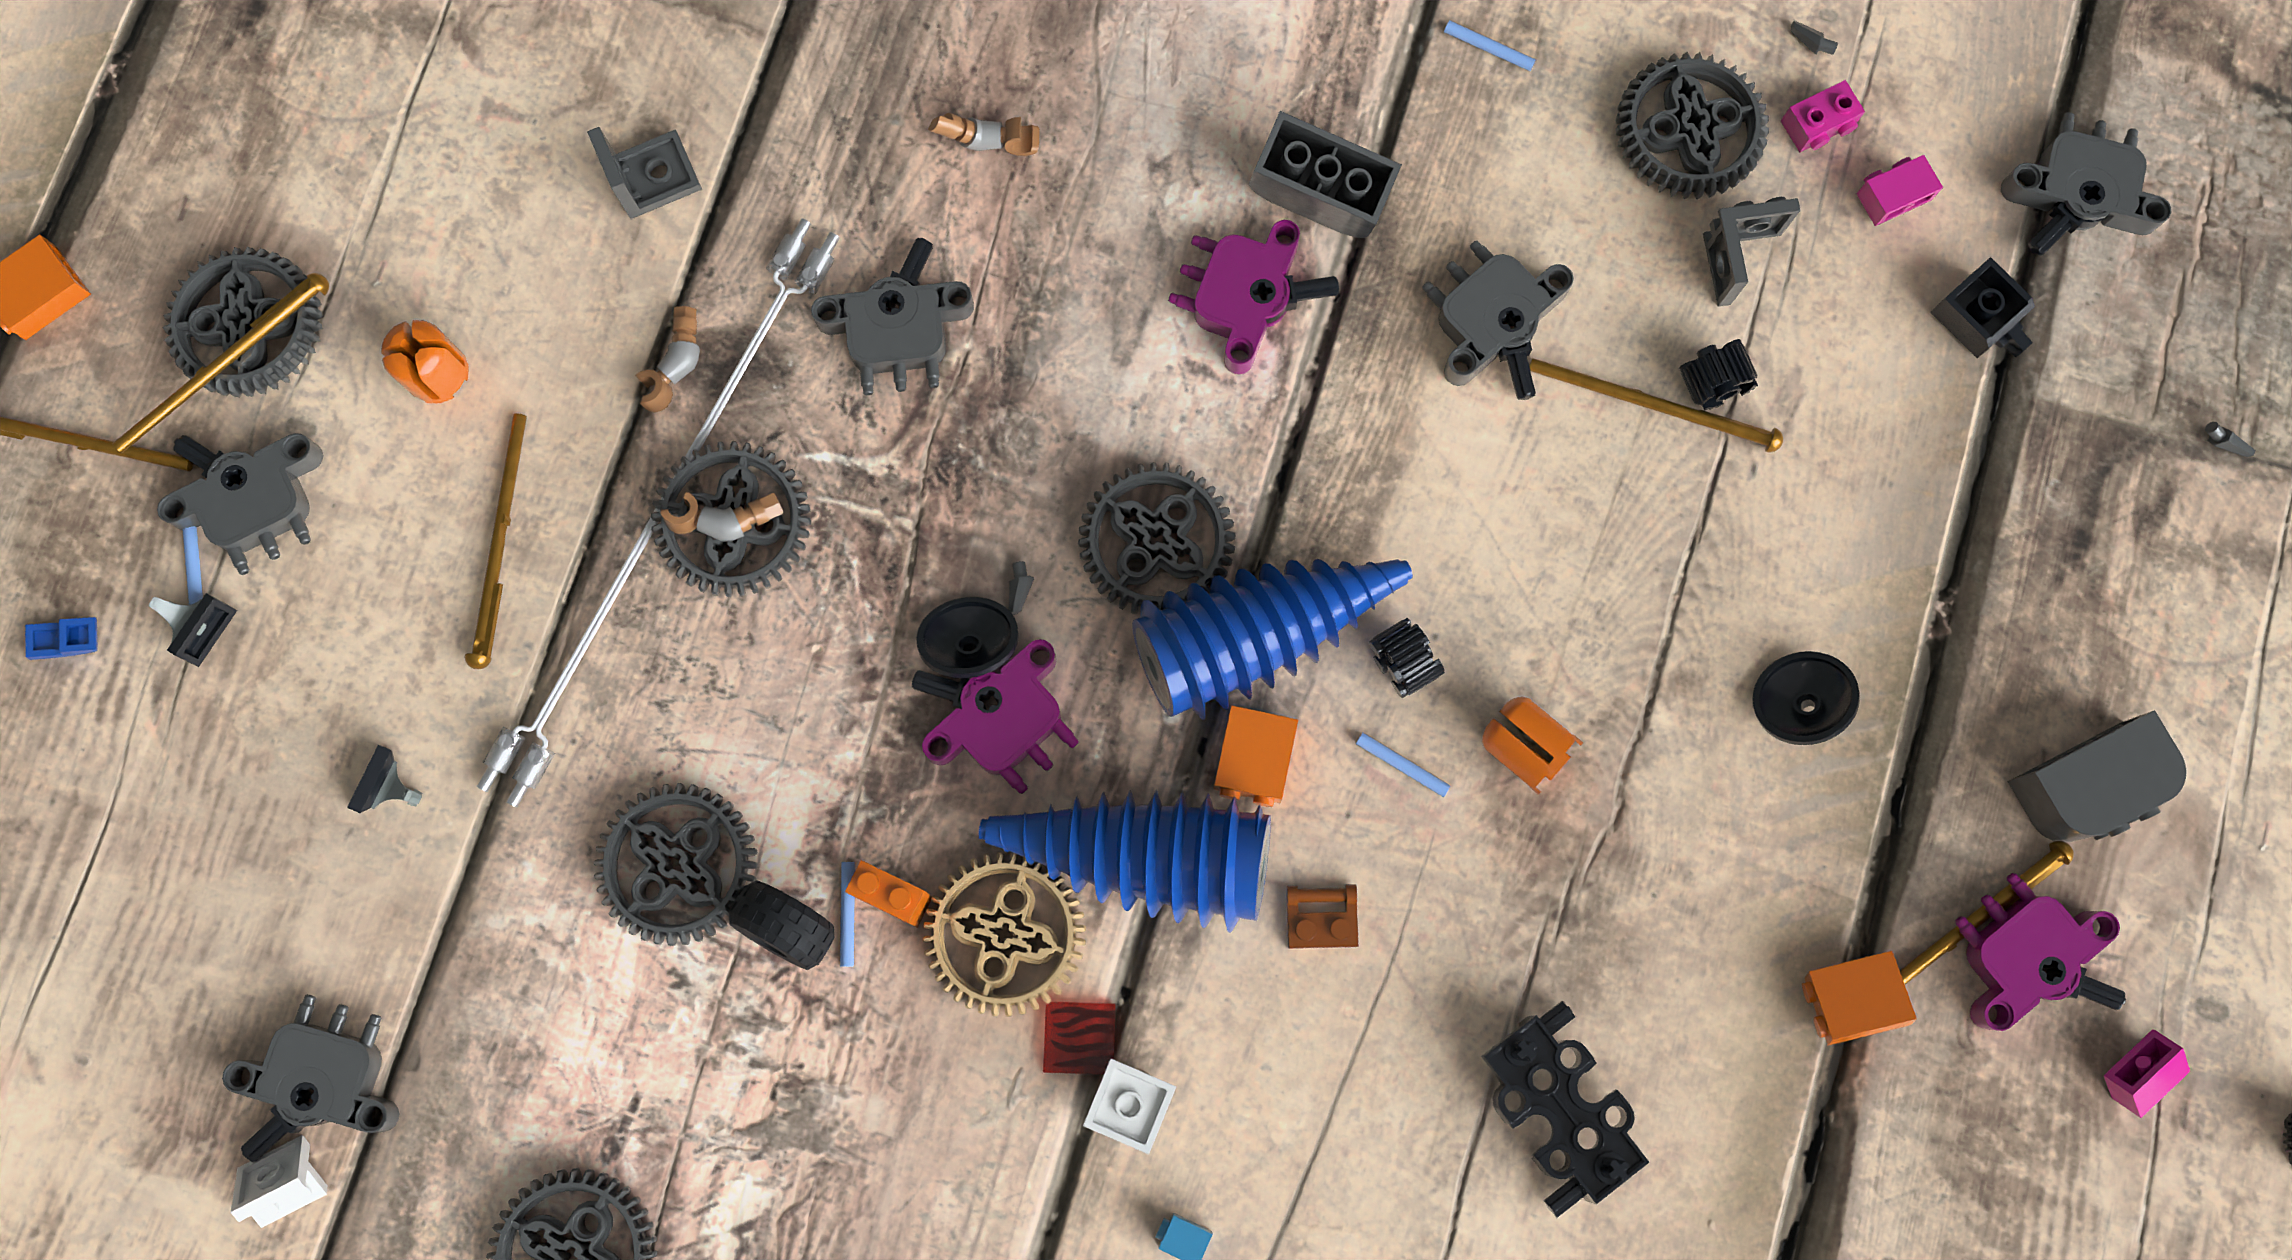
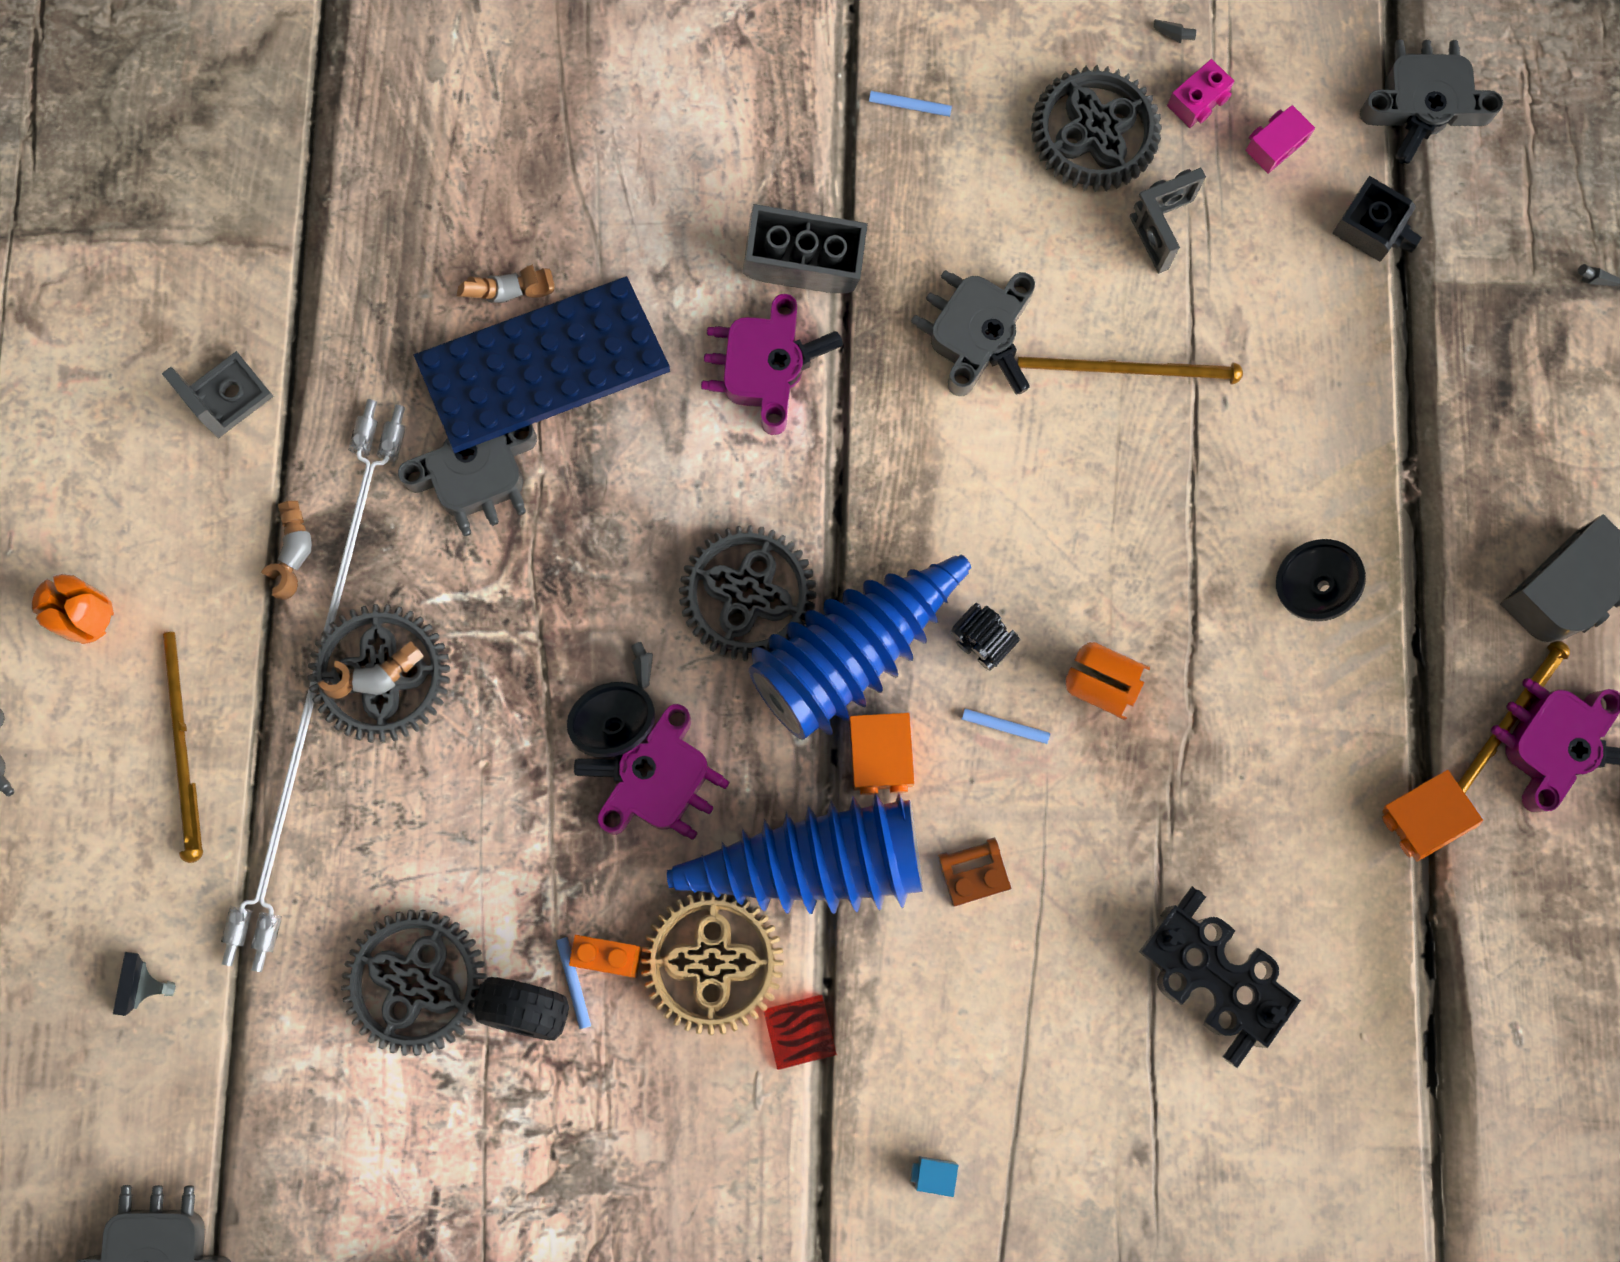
camera: 20 degrees left, 0 degrees up
(1000, 228) = (541, 364): none -> dark blue plate
(1129, 1106) = (859, 1077): white bracket -> none
(1719, 374) = (1176, 330): black brick -> none

